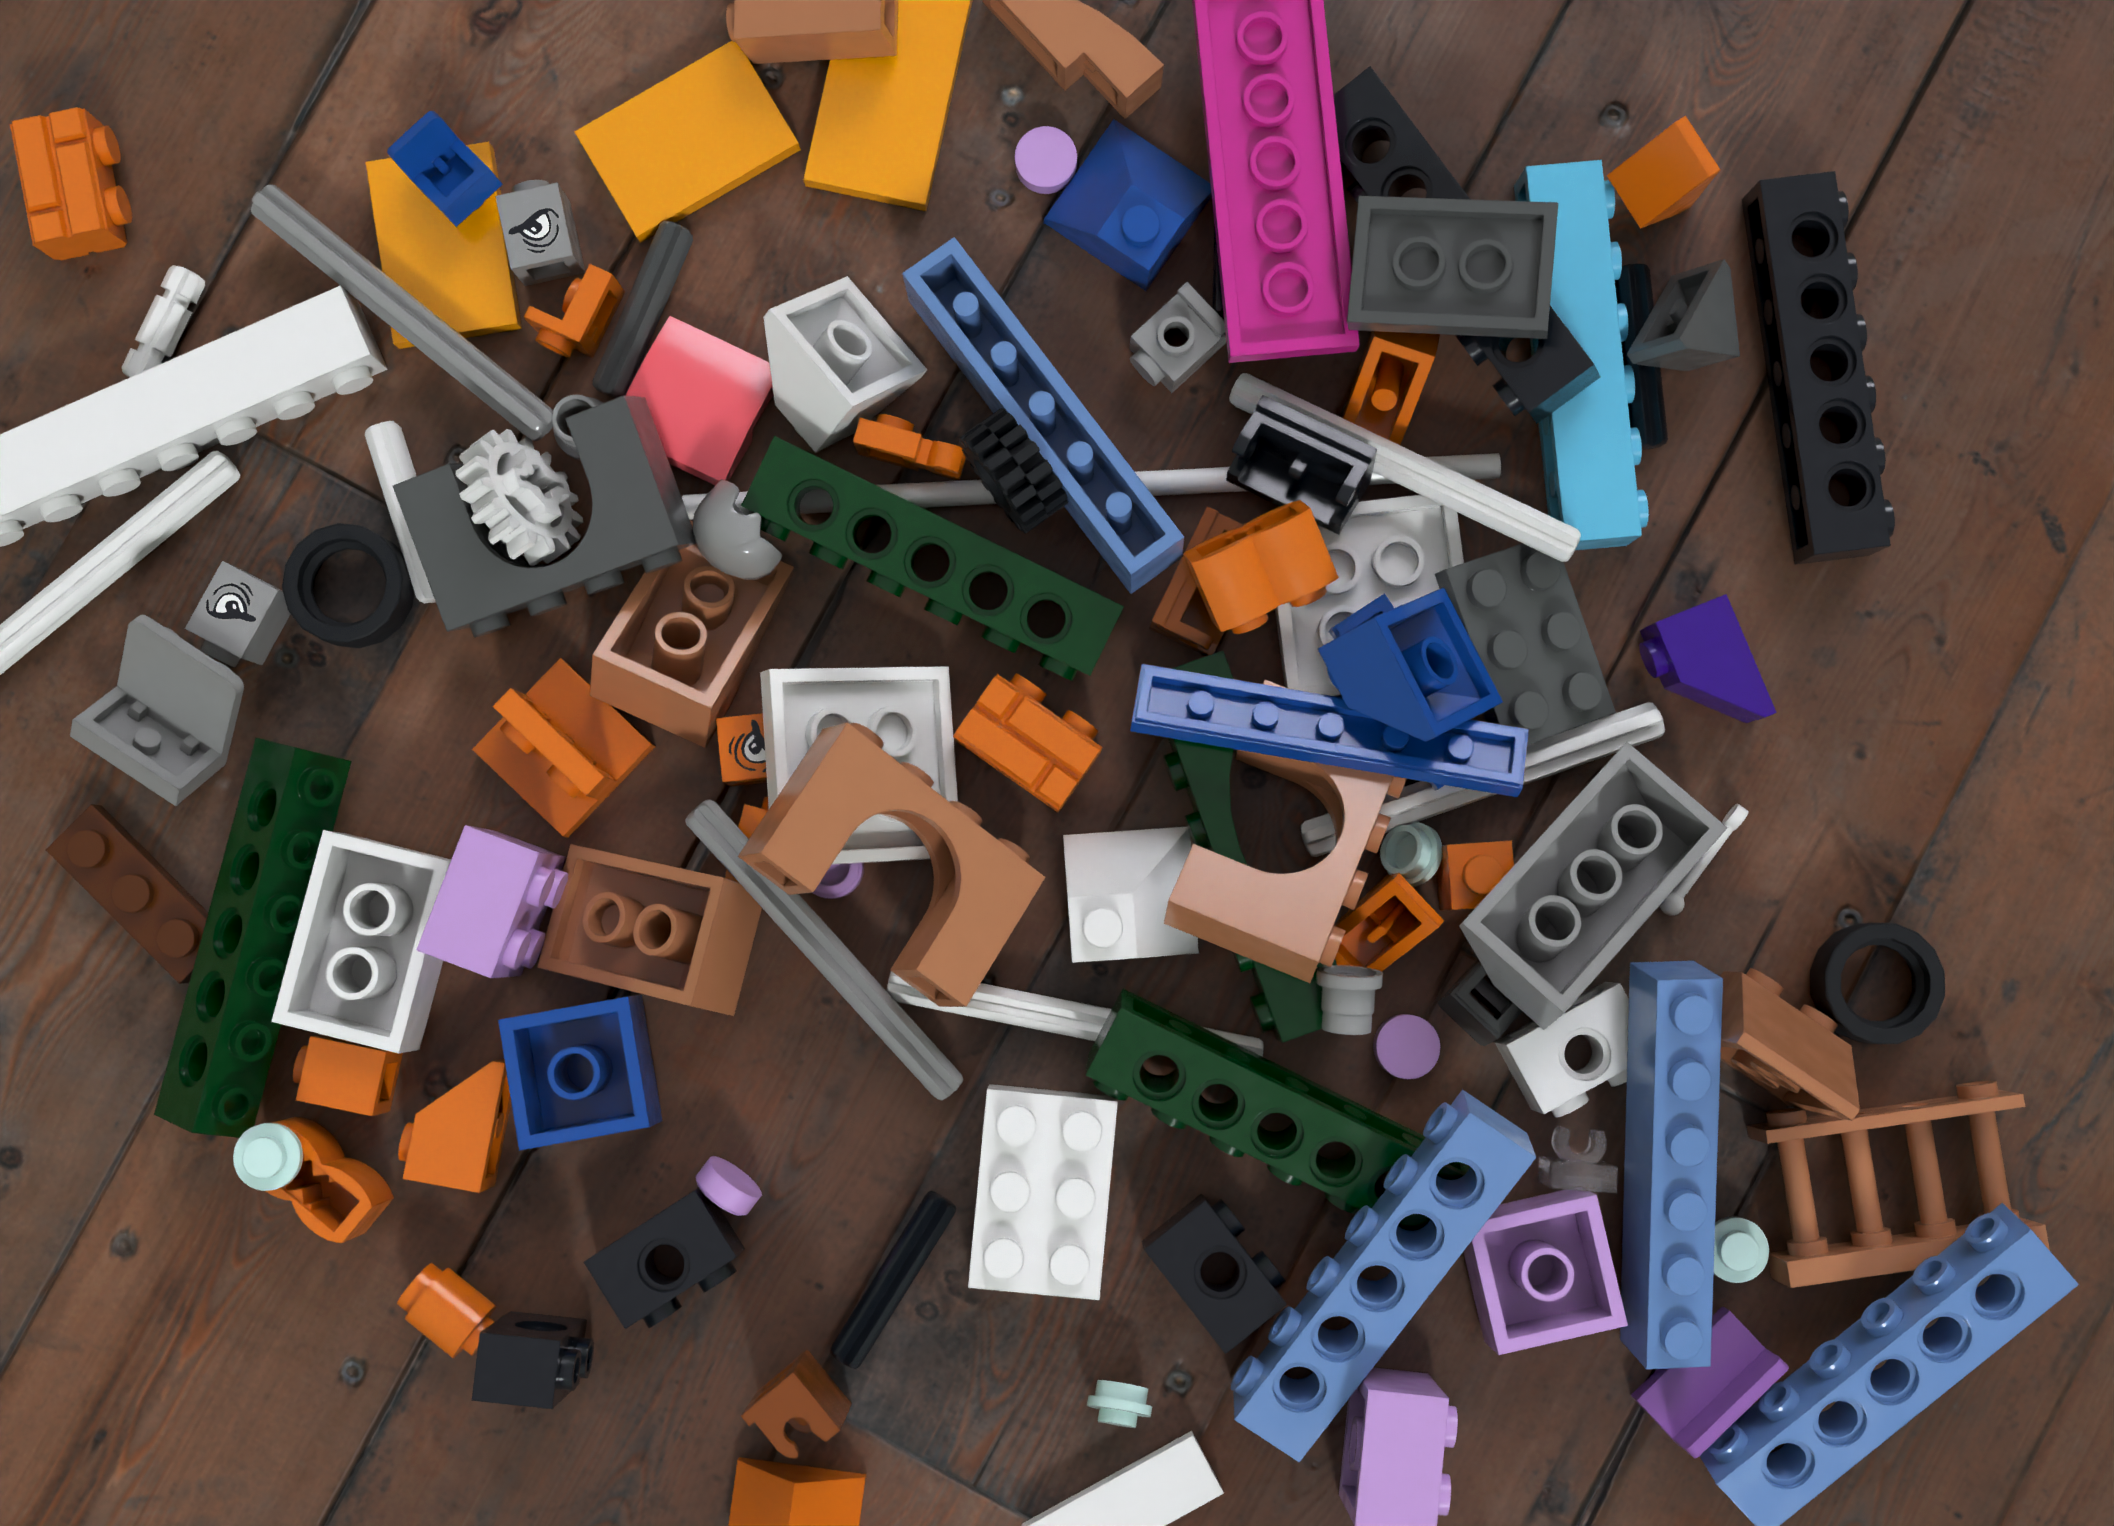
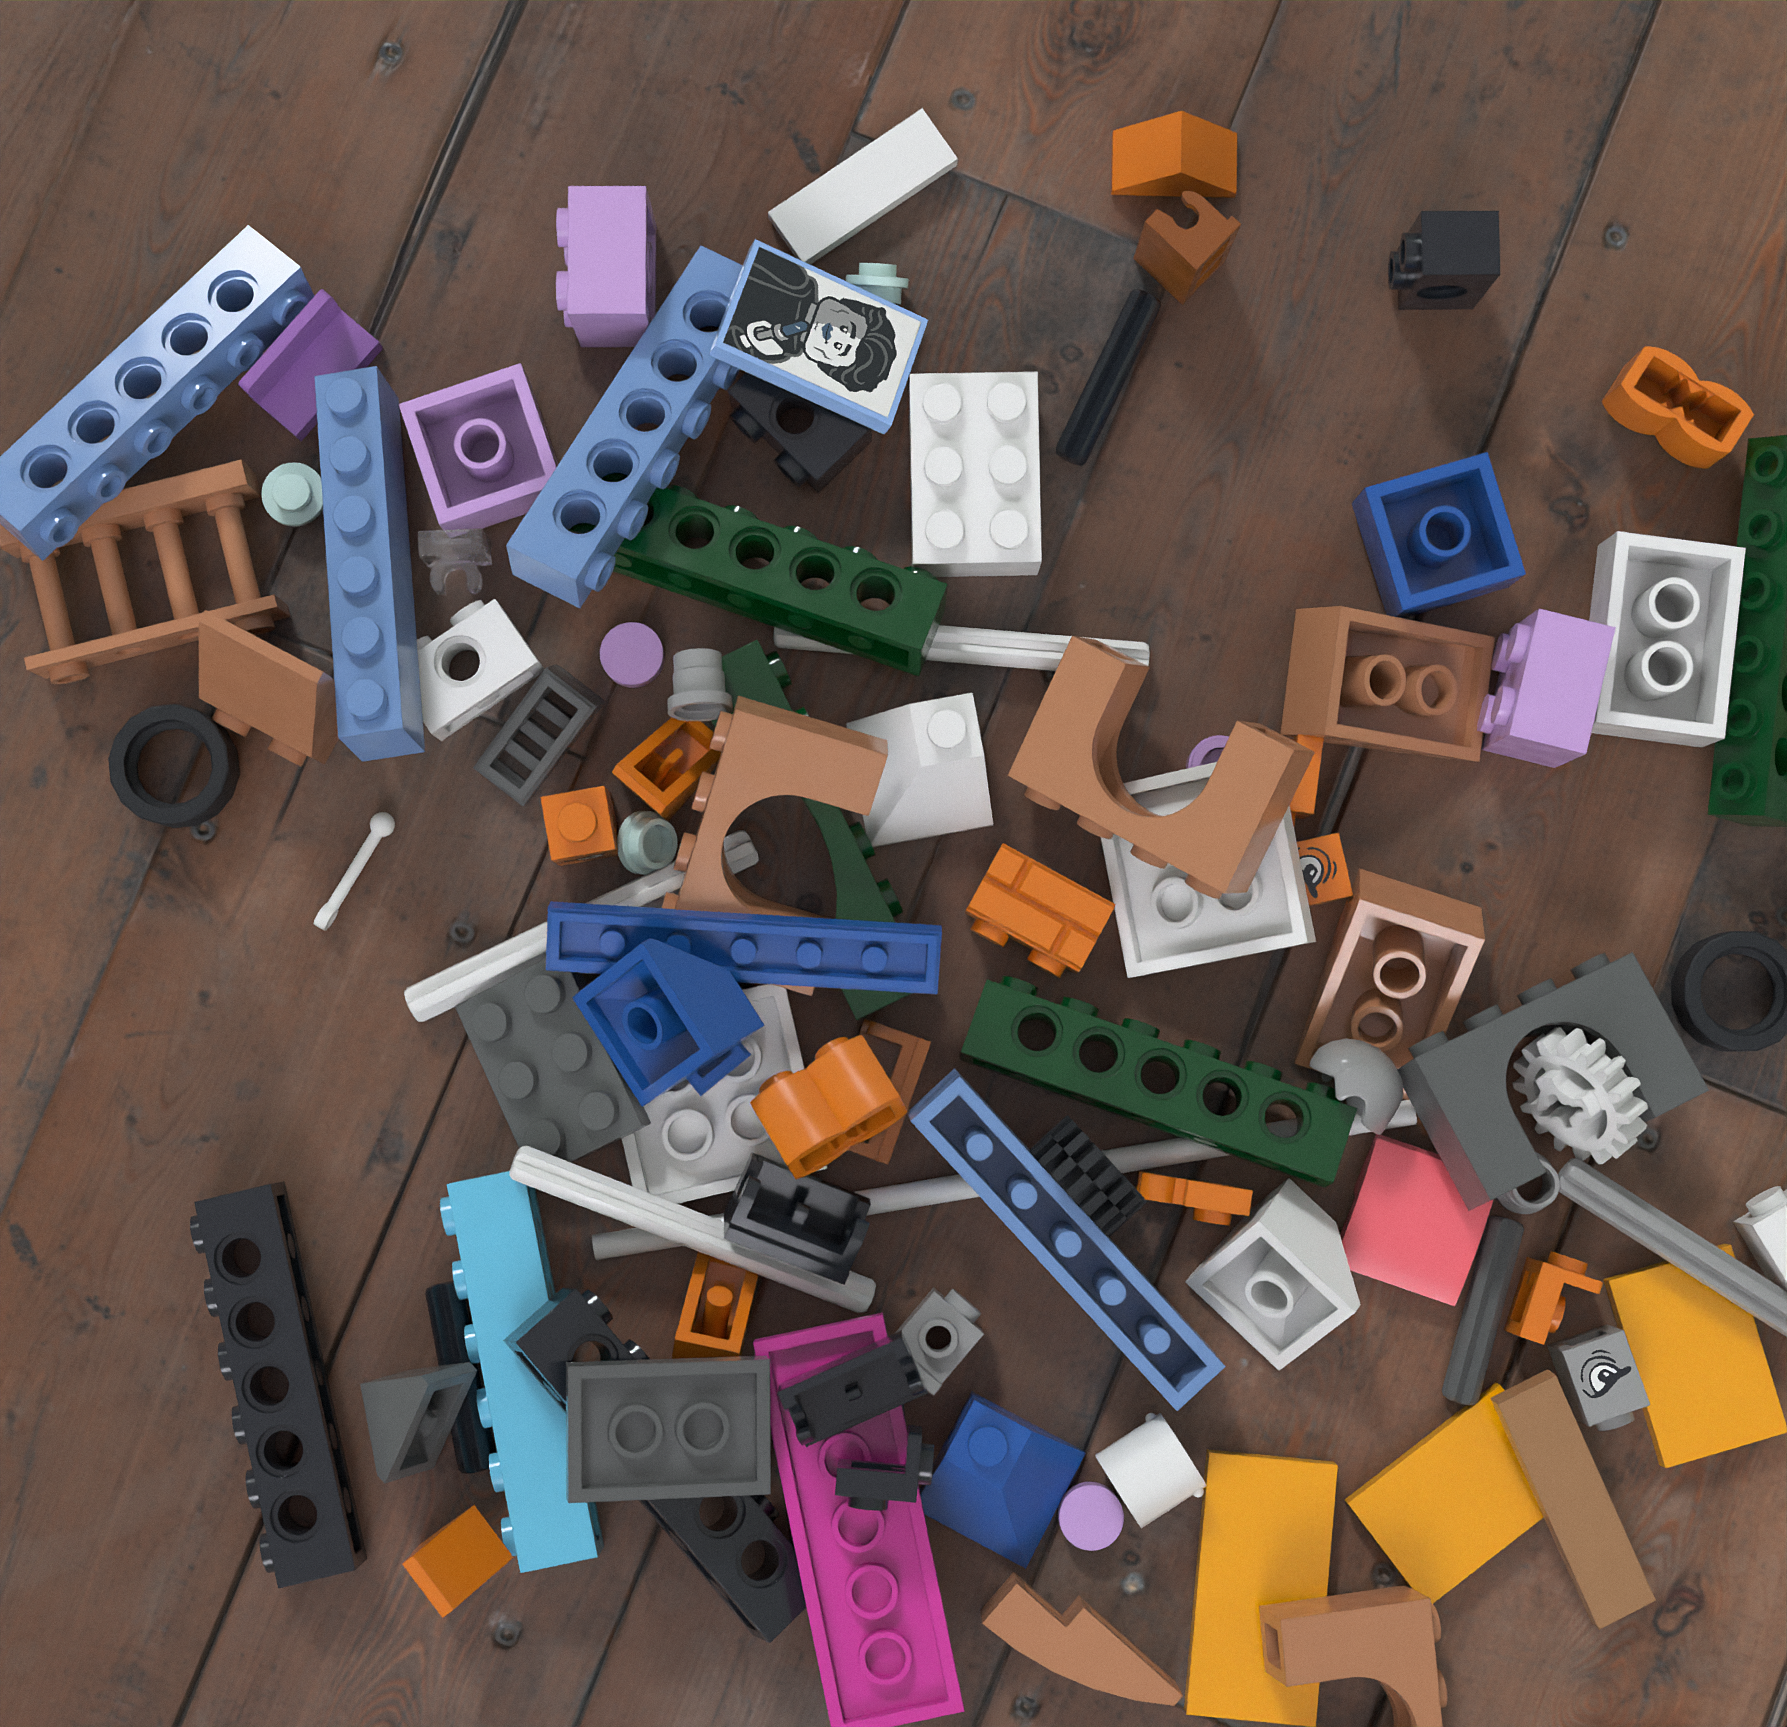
camera: 170 degrees right, 0 degrees up
(268, 1156) = (1728, 417): light aqua plate -> none
(346, 1075) = (1666, 506): orange brick -> none
(392, 467) = (1707, 1110): white axle -> none
(443, 168) = (1706, 1427): blue bracket -> none
(446, 1310) = (1533, 300): orange brick -> none
(460, 1134) = (1546, 464): orange slope -> none
(562, 747) = (1501, 855): orange bracket -> none
(582, 121) = (1573, 1499): none -> medium nougat tile
(628, 1270) = (1361, 349): black brick -> none
(728, 1186) = (1279, 446): lavender tile -> none
(828, 955) = (1210, 674): light grey axle -> none
(984, 191) = (1151, 1470): none -> white piece
(1188, 1349) = (819, 337): none -> tile
(1252, 193) = (873, 1484): none -> black bracket
(1270, 287) = (852, 1389): none -> black hinge
(1588, 885) = (471, 825): light grey slope -> none
(1707, 660) = (369, 1070): dark purple slope -> none

